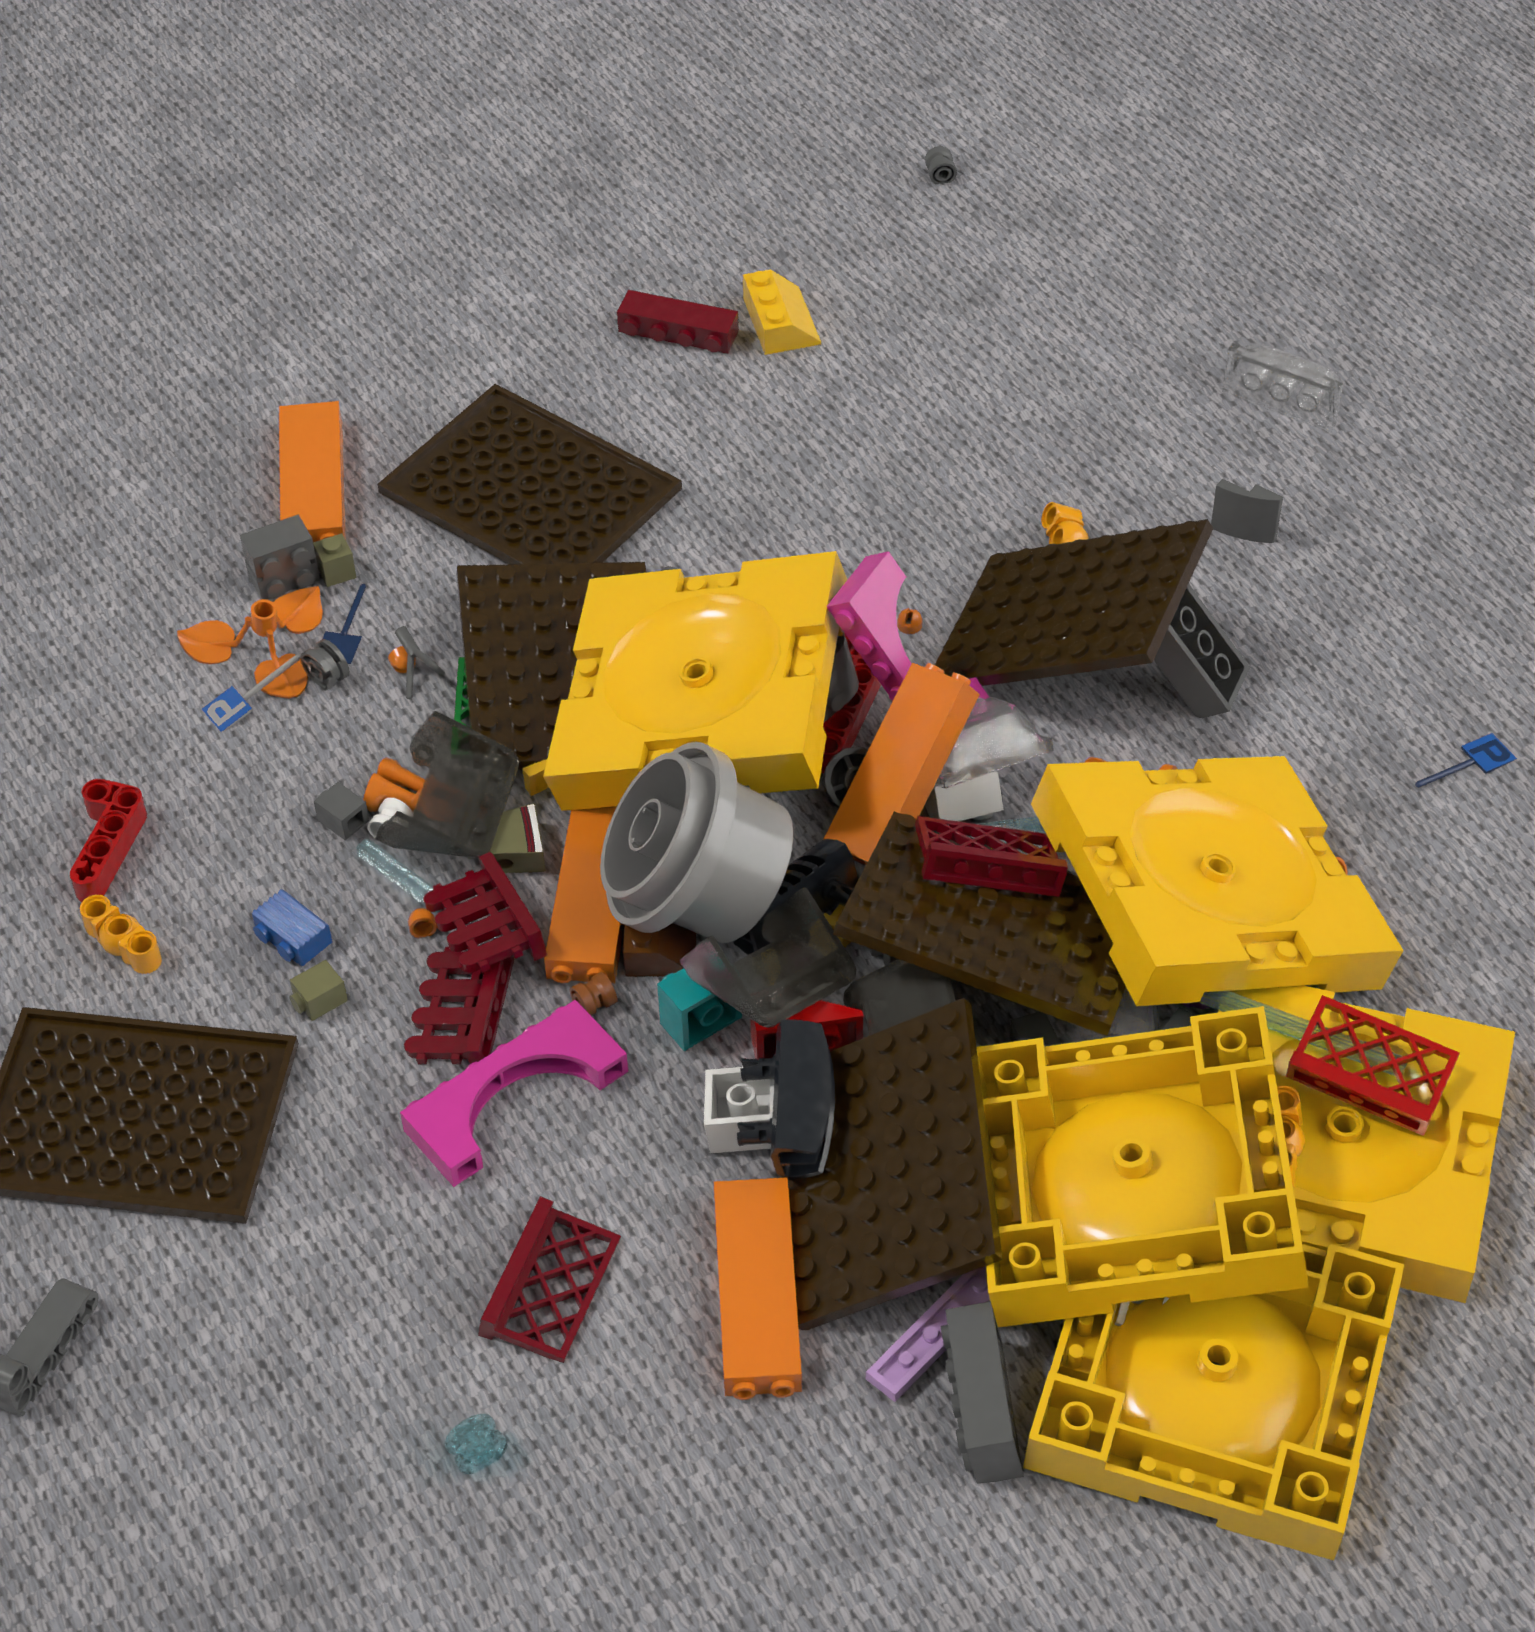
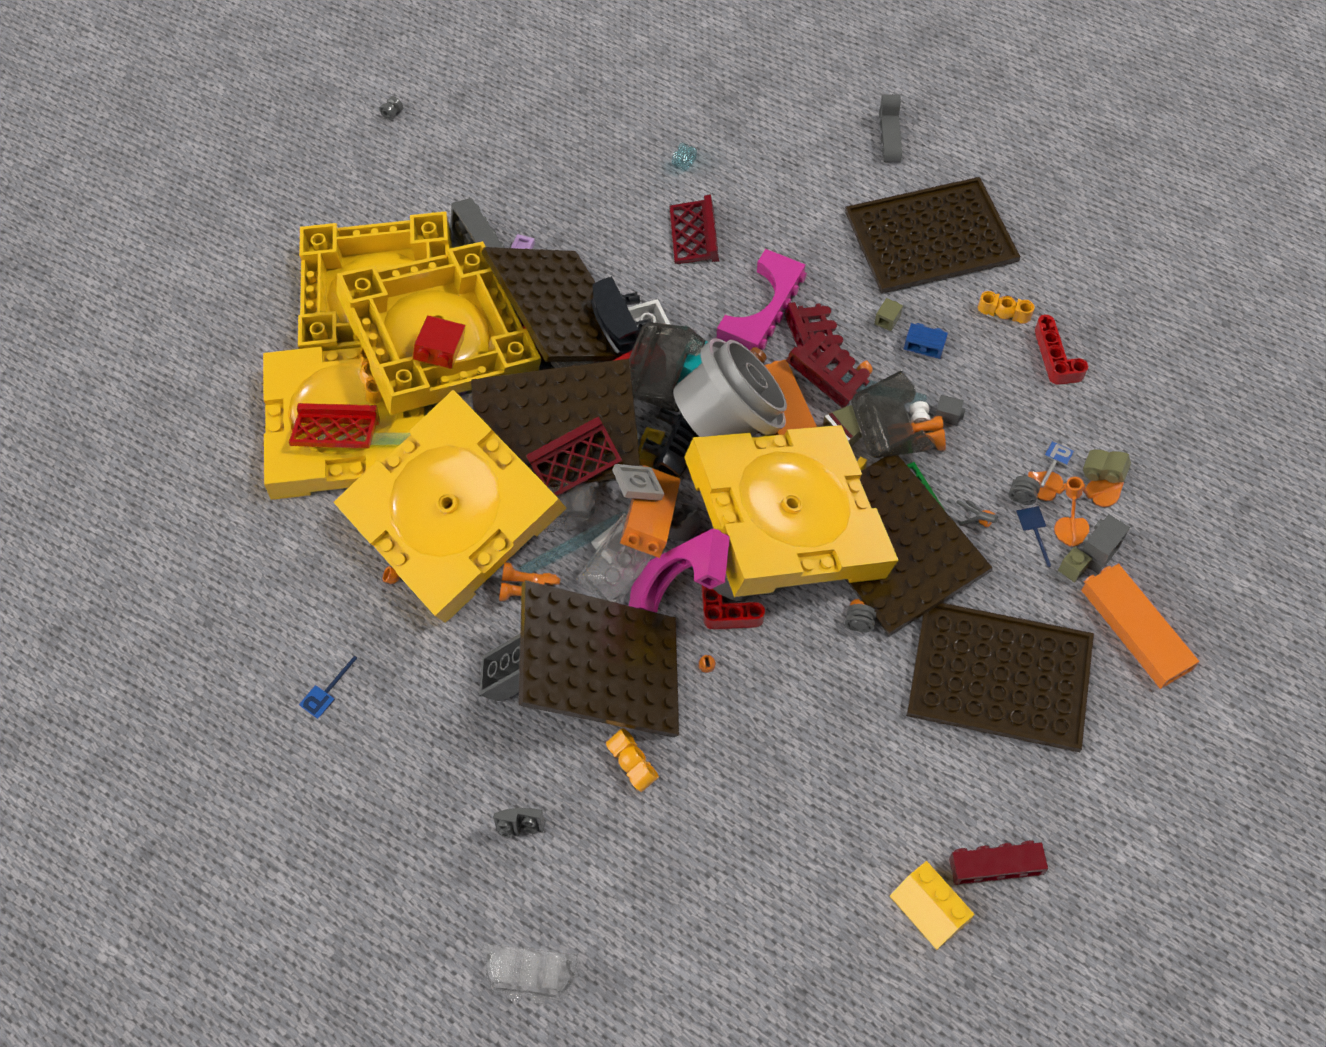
camera: 155 degrees right, 10 degrees up
(183, 653) = (1107, 465): none -> olive brick
(757, 1288) = (598, 251): orange brick -> none
(907, 780) = (638, 482): none -> light grey hinge
(1148, 1079) = (439, 342): none -> red brick

